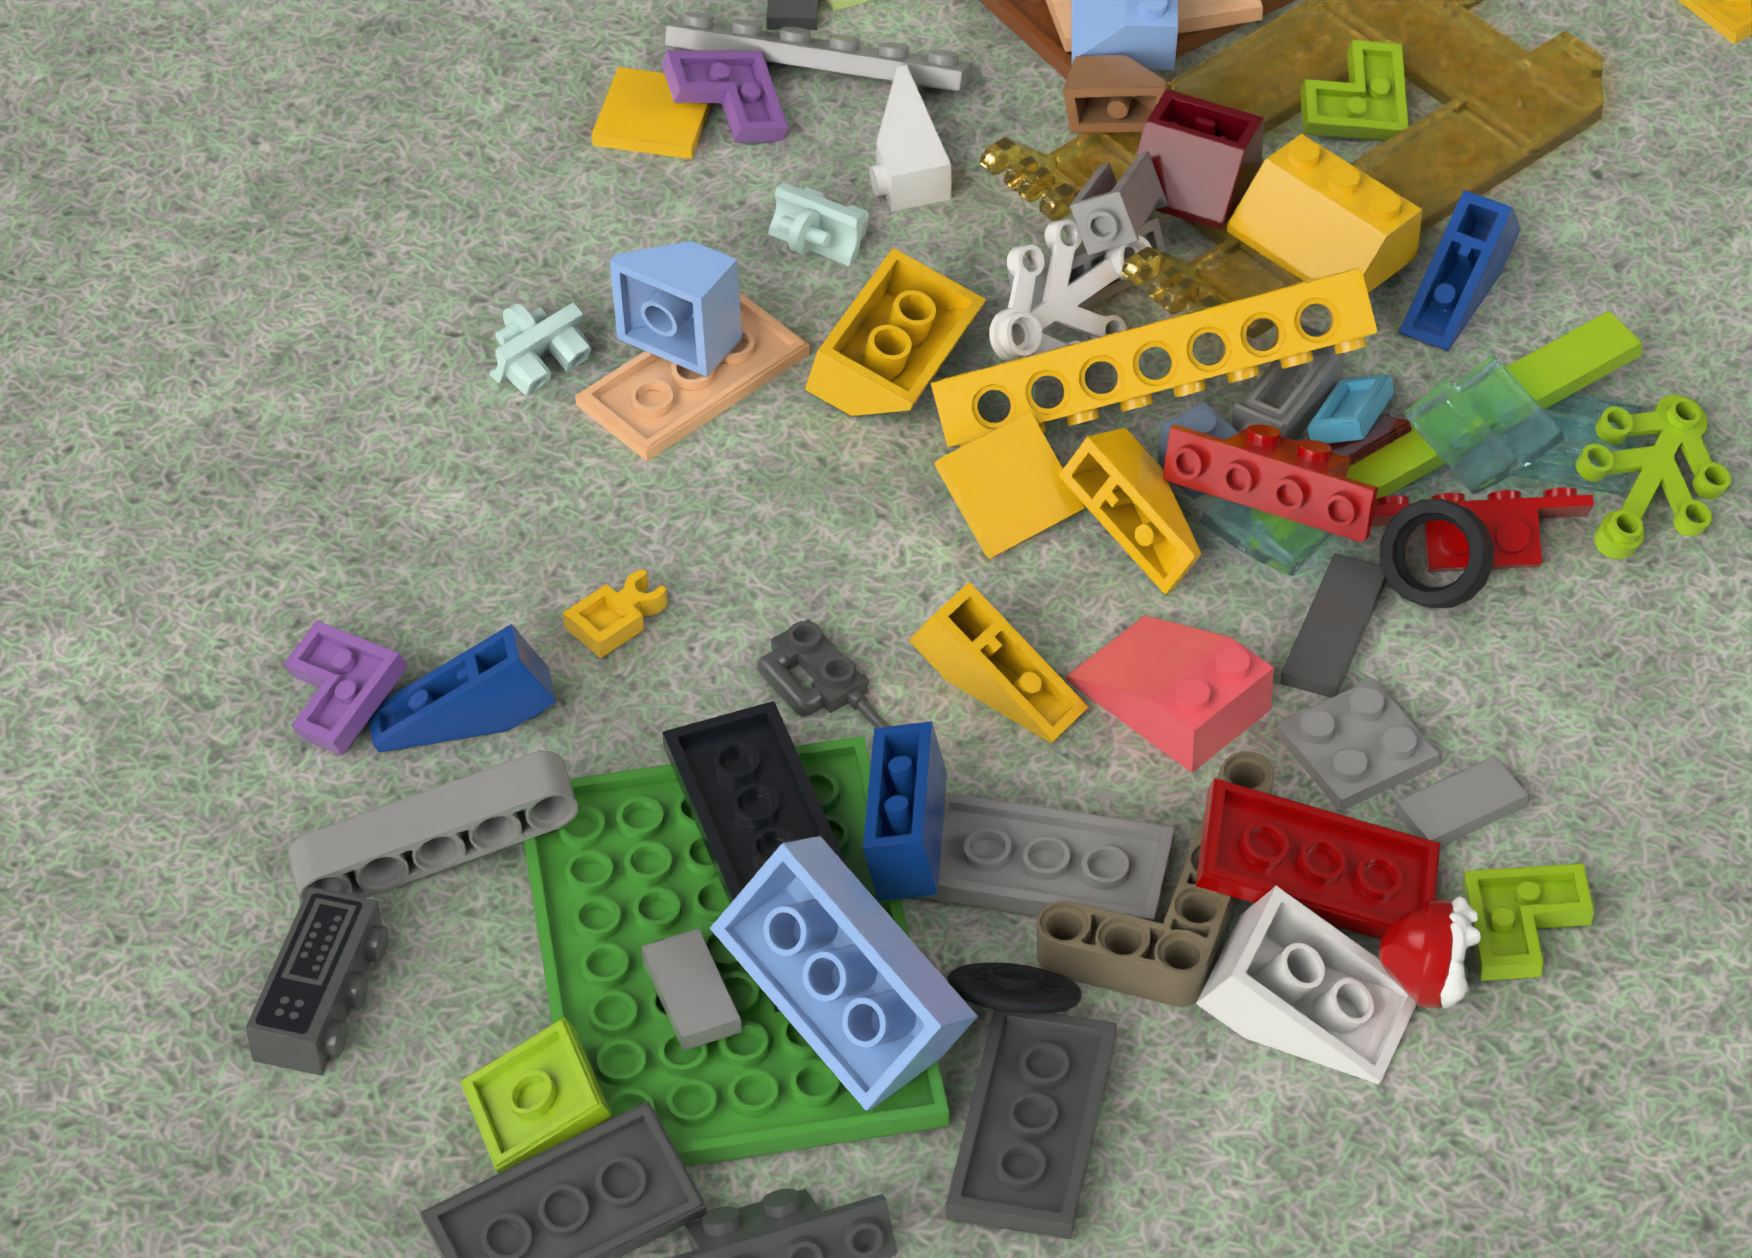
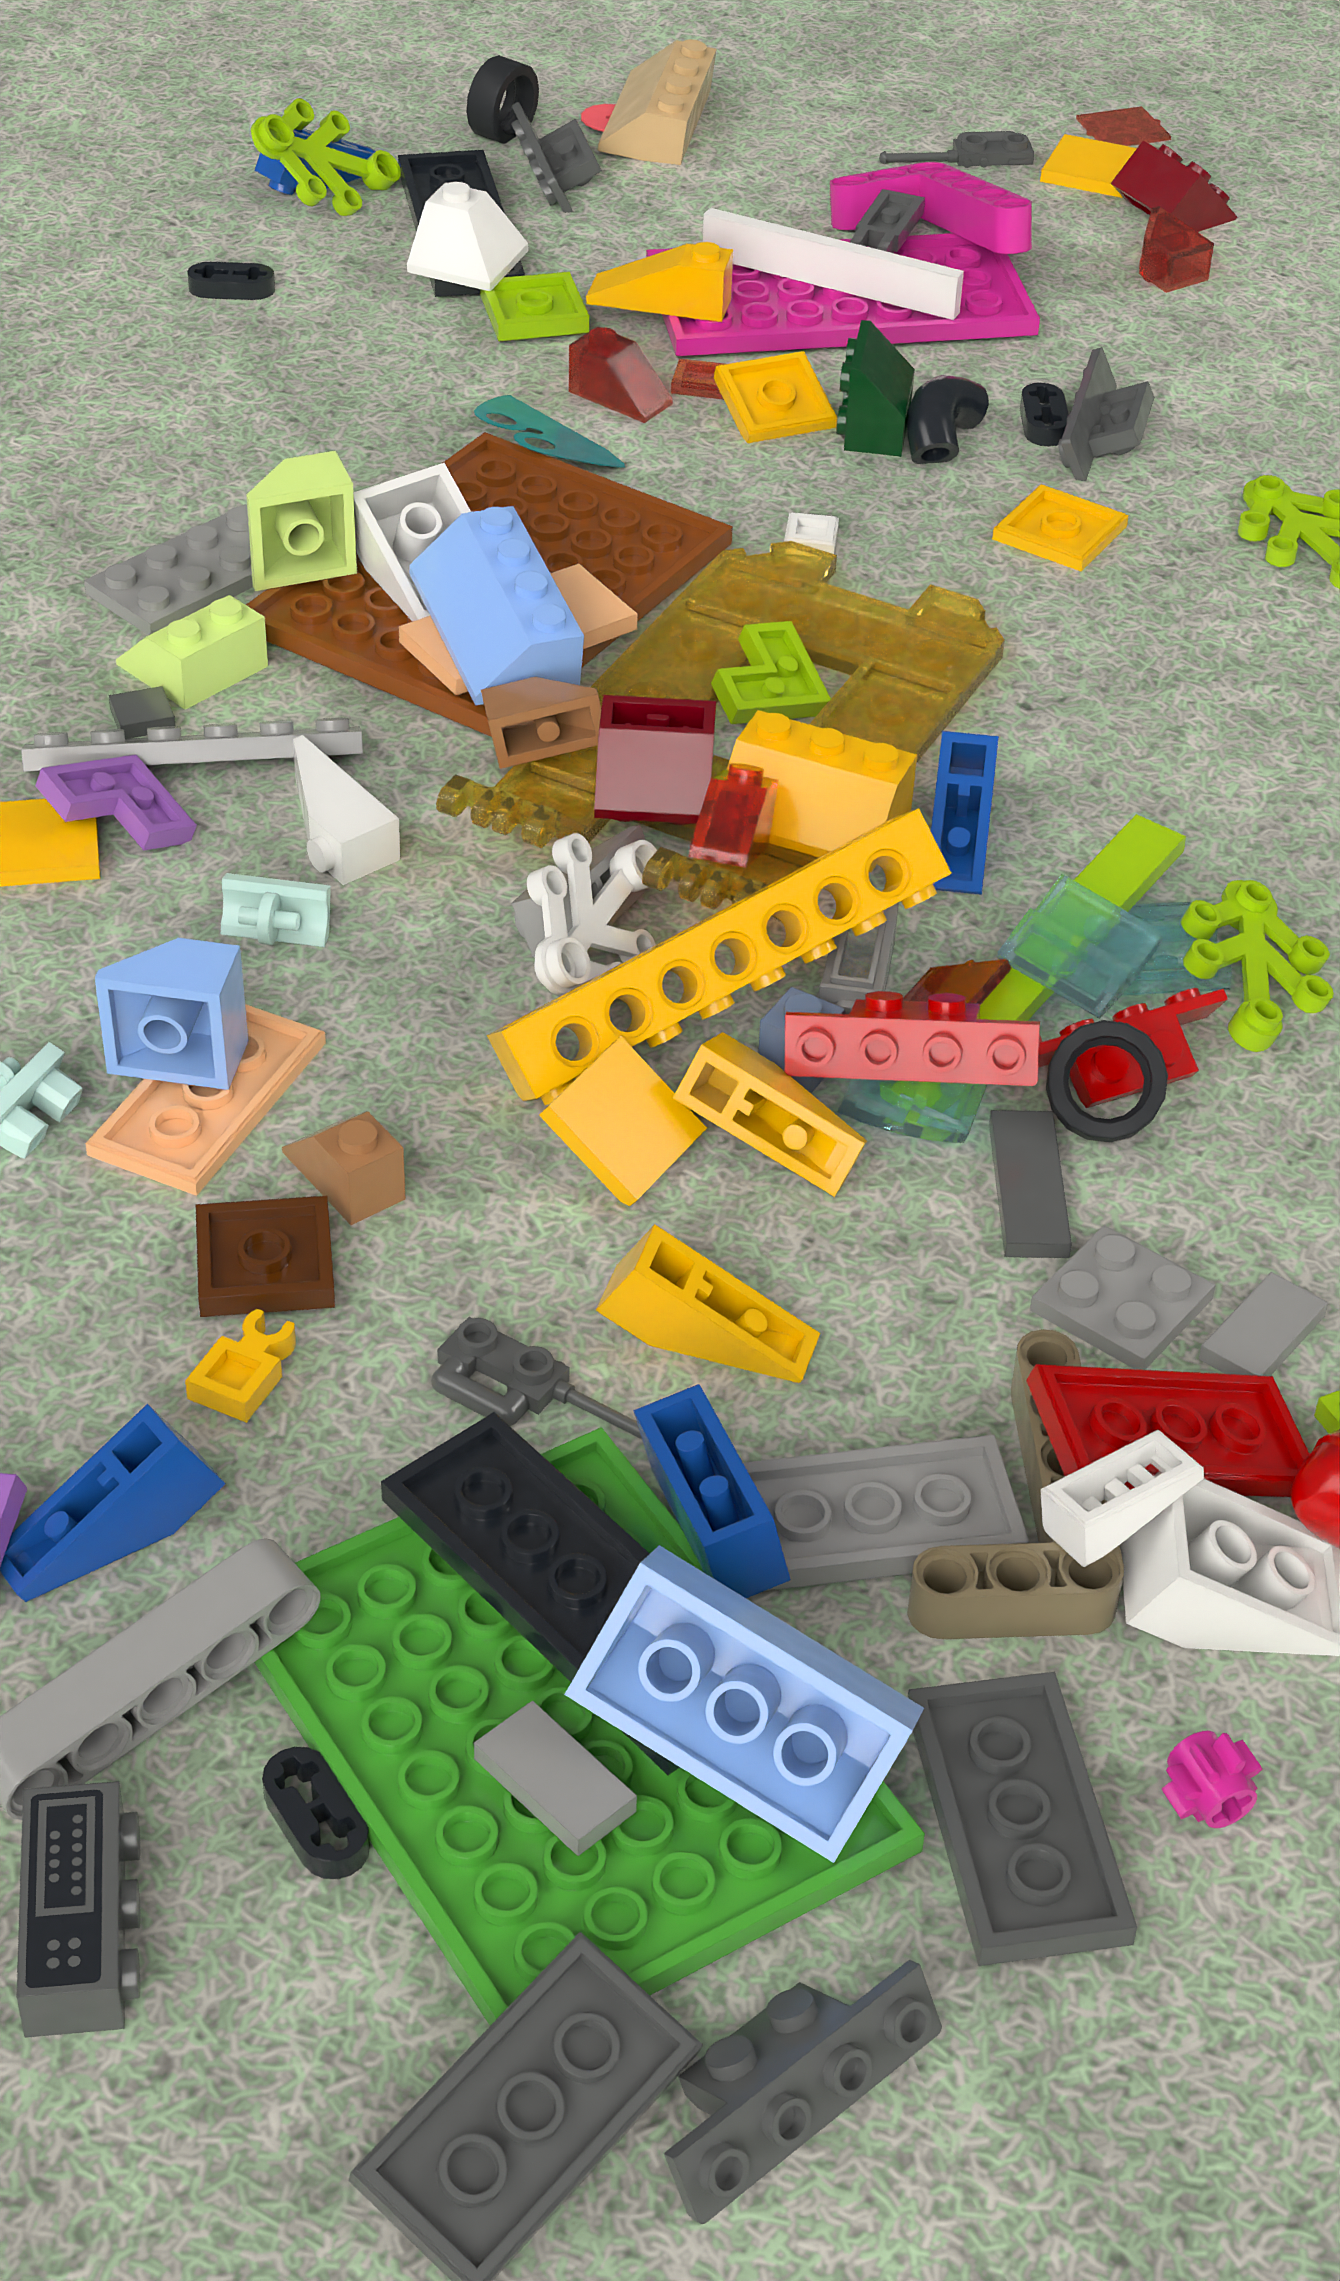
camera: 25 degrees left, 5 degrees down
(505, 967) = (301, 1820): none -> black beam
(535, 1096) = (424, 1974): lime tile -> none
(672, 526) = (264, 1256): none -> reddish brown plate
(774, 470) = (353, 1165): none -> medium nougat slope
(892, 338) = (424, 1004): yellow slope -> none
(1015, 988) = (929, 1662): black wheel -> none
(1114, 212) = (615, 823): light grey window -> none
(1178, 687) = (907, 1284): coral slope -> none
(1193, 1138) = (1212, 1778): none -> dark pink gear
(1201, 903) = (1093, 1529): none -> white slope
(1231, 233) = (735, 816): none -> clear red slope
(1351, 409) = (932, 964): medium azure tile -> none

